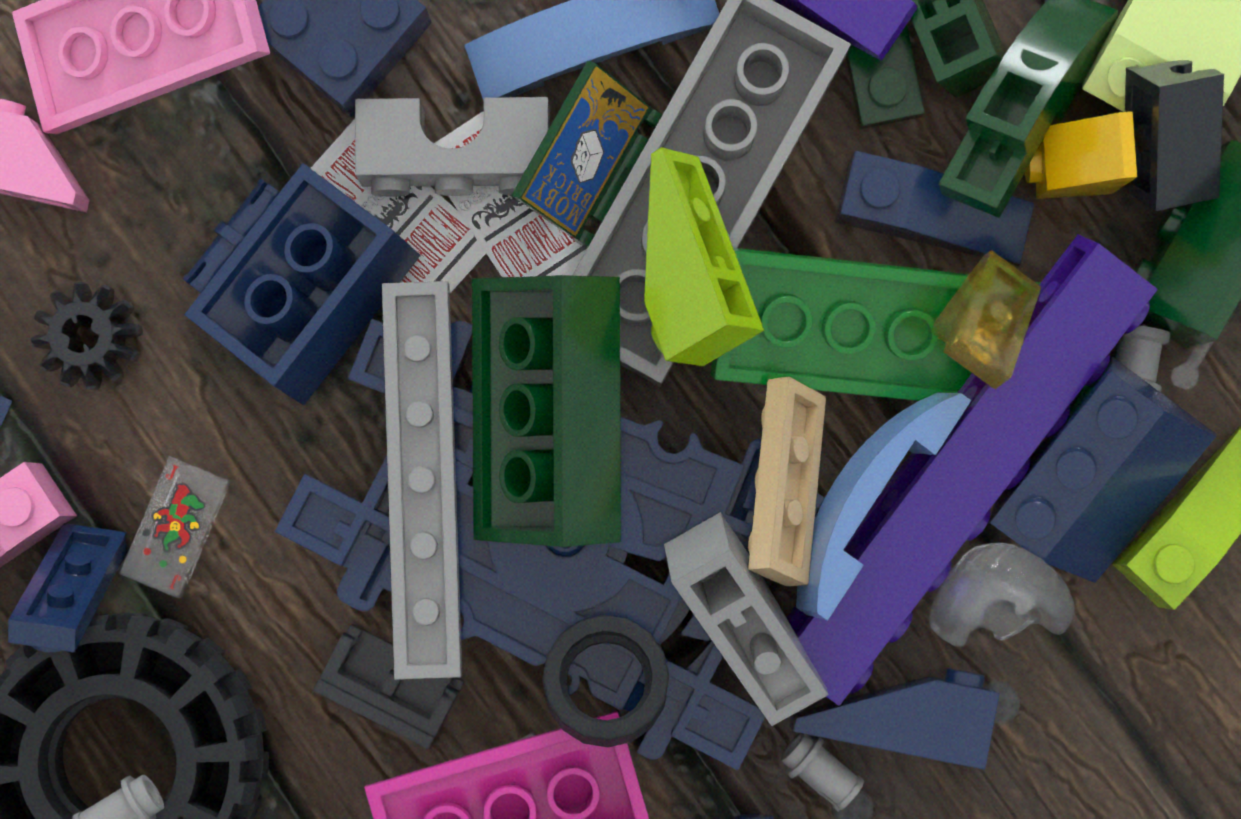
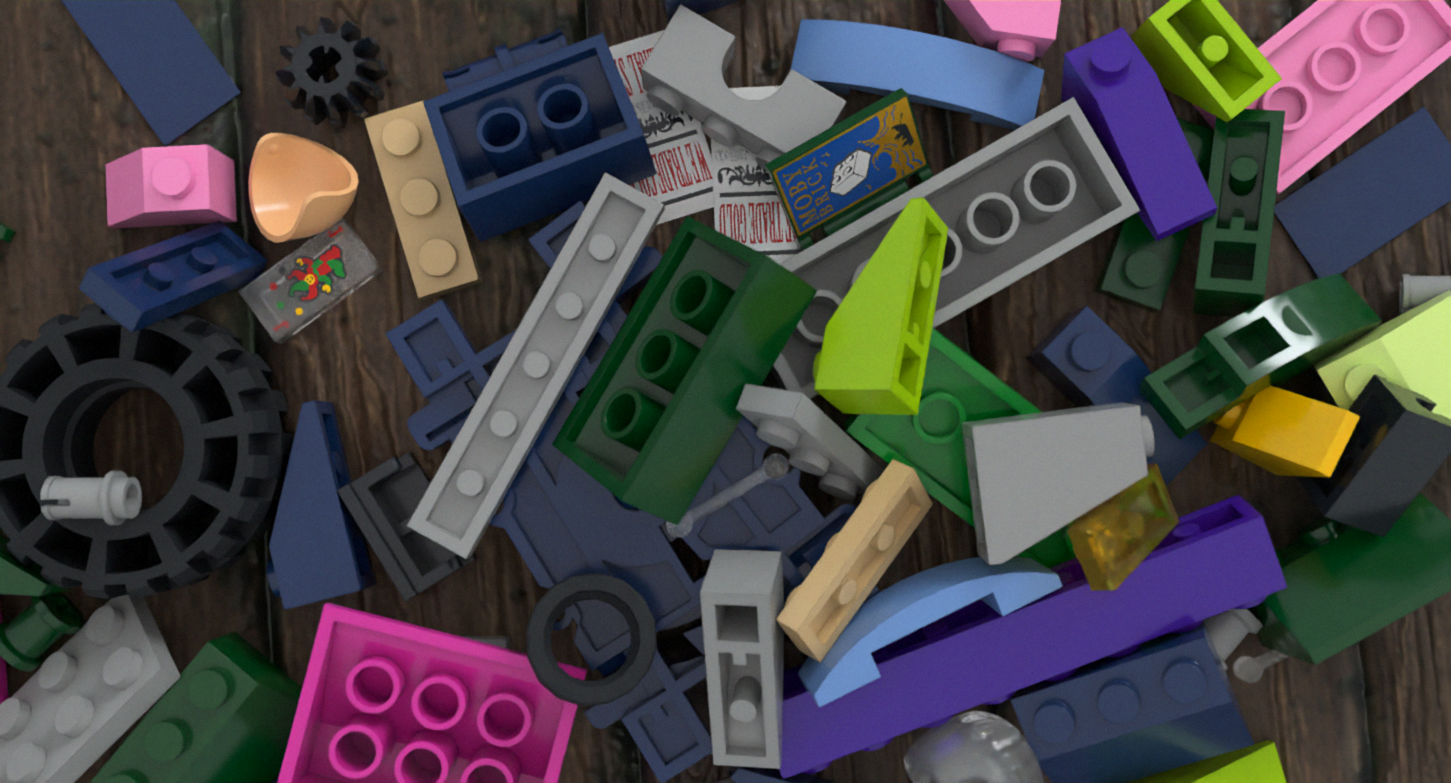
camera: 25 degrees right, 0 degrees up
(118, 453) = (298, 187): none -> light nougat helmet
(231, 399) = (422, 202): none -> tan plate
(313, 735) = (314, 537): none -> dark blue slope
(673, 446) = (774, 467): none -> clear hinge
(690, 404) = (811, 439): none -> light grey plate
(900, 310) = (1048, 470): none -> light grey slope

